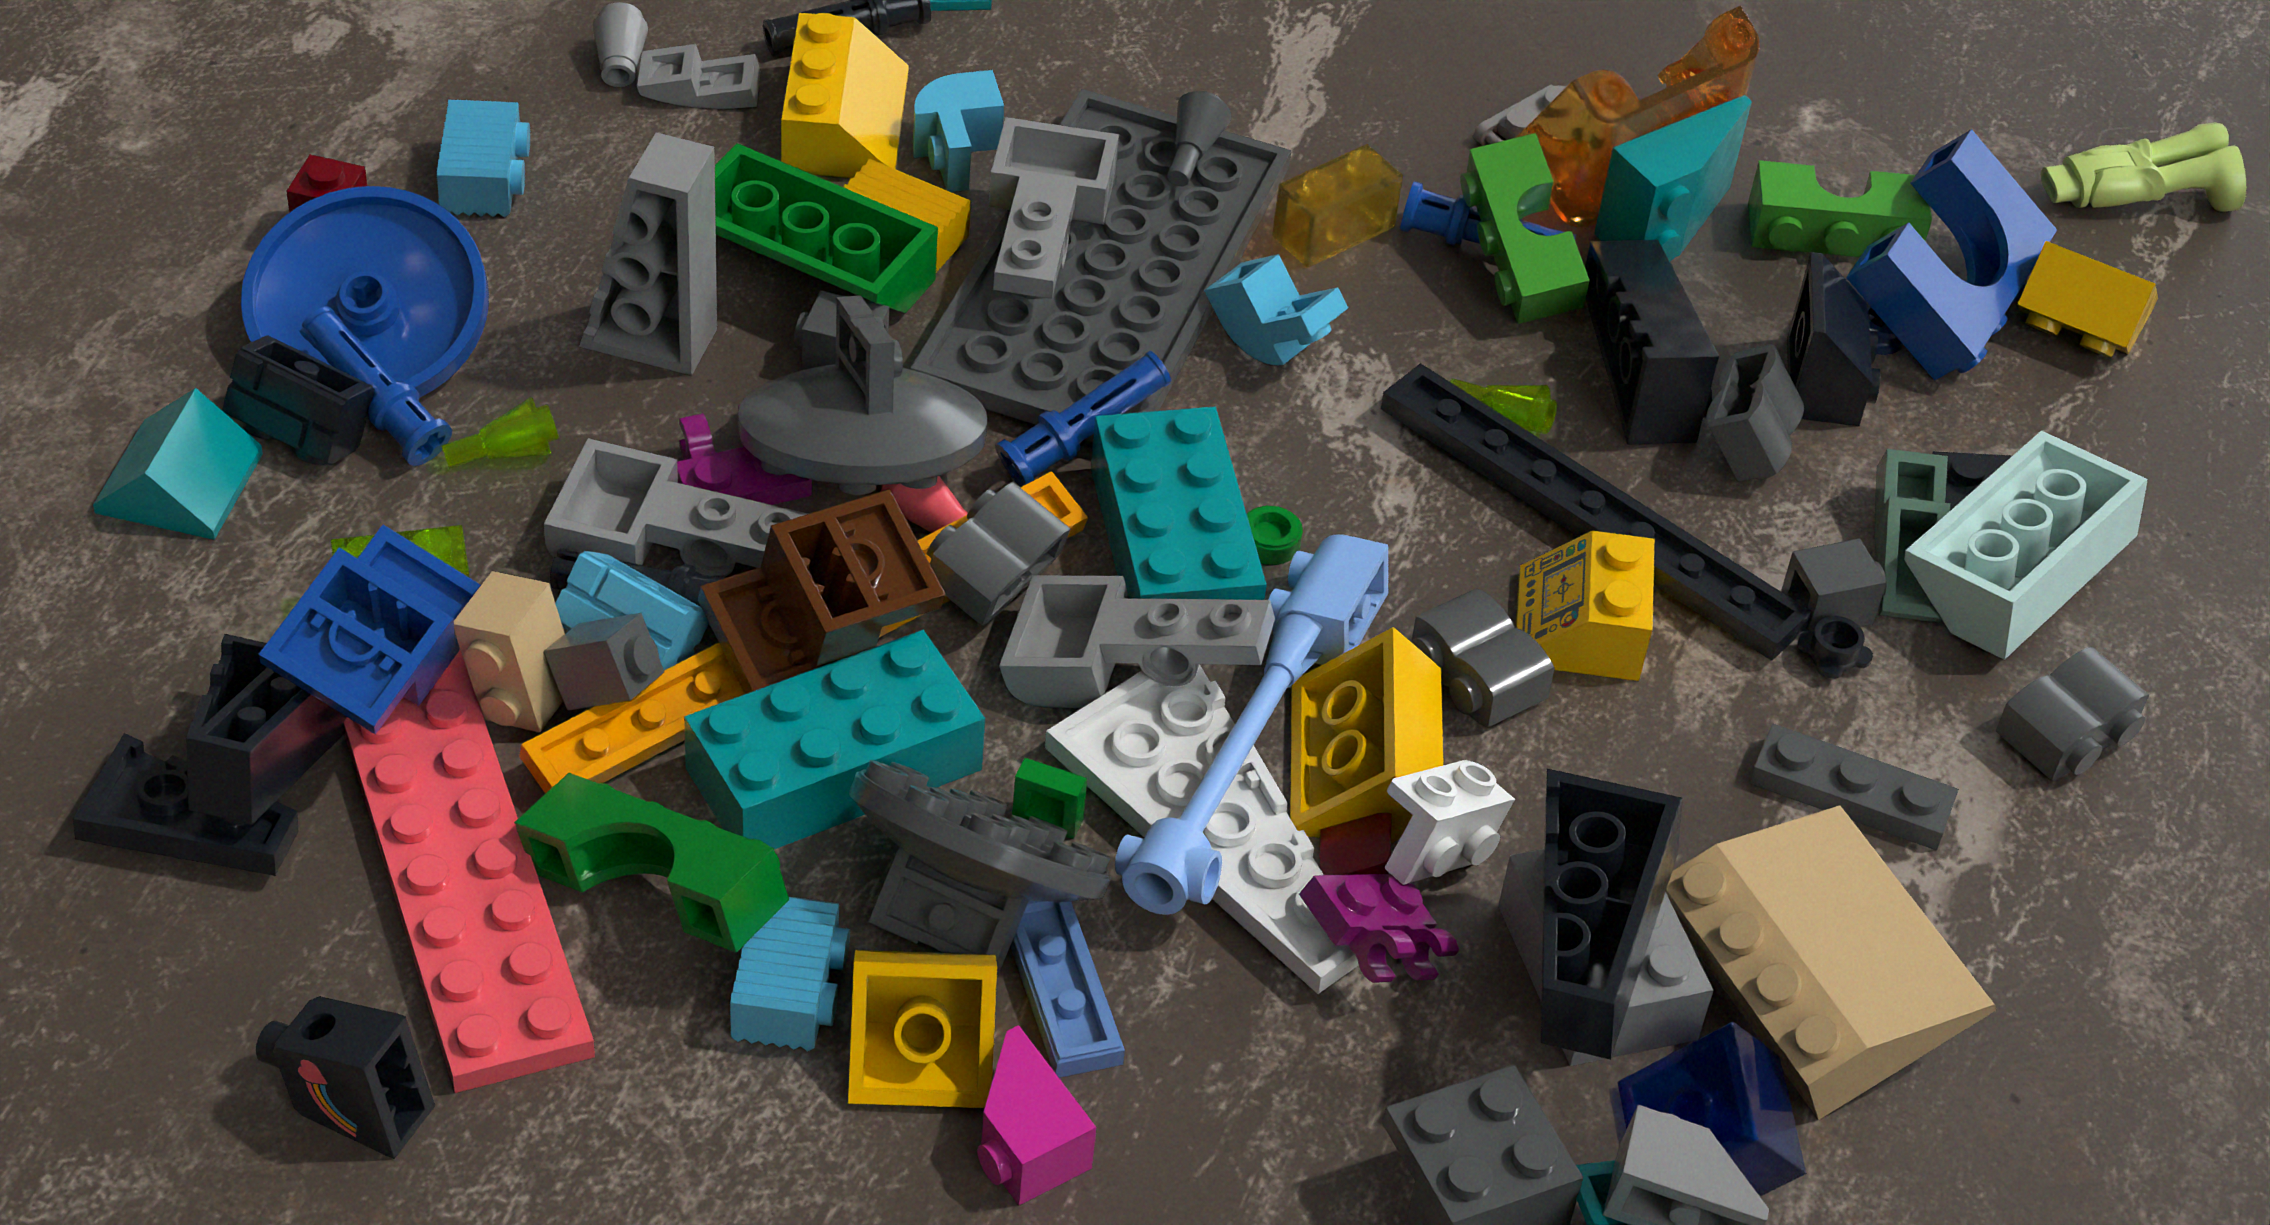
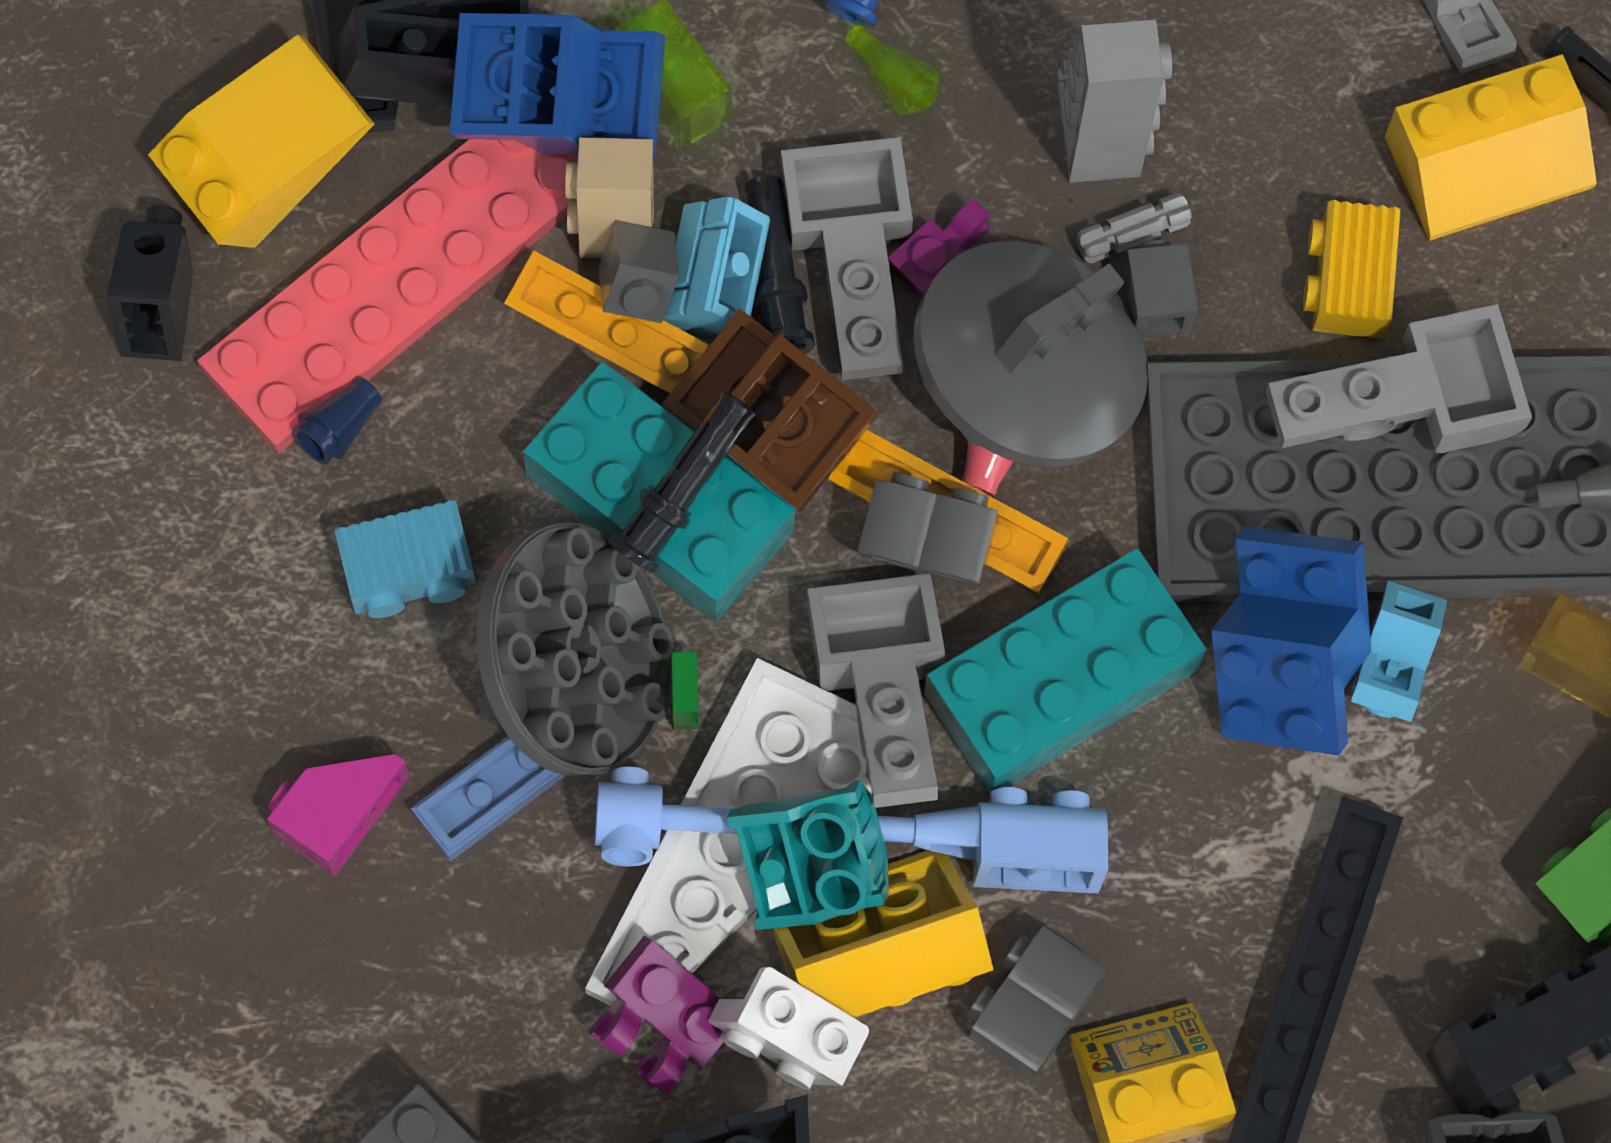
camera: 70 degrees right, 25 degrees up
(258, 907) = (261, 143): none -> yellow slope
(599, 980) = (334, 422): none -> dark blue cone
(717, 879) = (426, 462): green arch -> none
(768, 339) = (1133, 228): none -> light grey axle
(824, 229) = (1257, 200): green slope -> none
(883, 689) = (667, 504): none -> black pin
(922, 1028) = (397, 683): yellow slope -> none
(956, 118) = (1526, 253): medium azure brick -> none
(1060, 433) = (1120, 530): blue pin -> none
(1238, 348) = (1292, 640): none -> blue bracket
(1275, 534) = (1116, 761): green tile -> none
(1282, 737) = (813, 856): none -> teal slope
(1356, 846) = (742, 961): dark red slope -> none
(1523, 404) = (1398, 933): clear neon green cone -> none

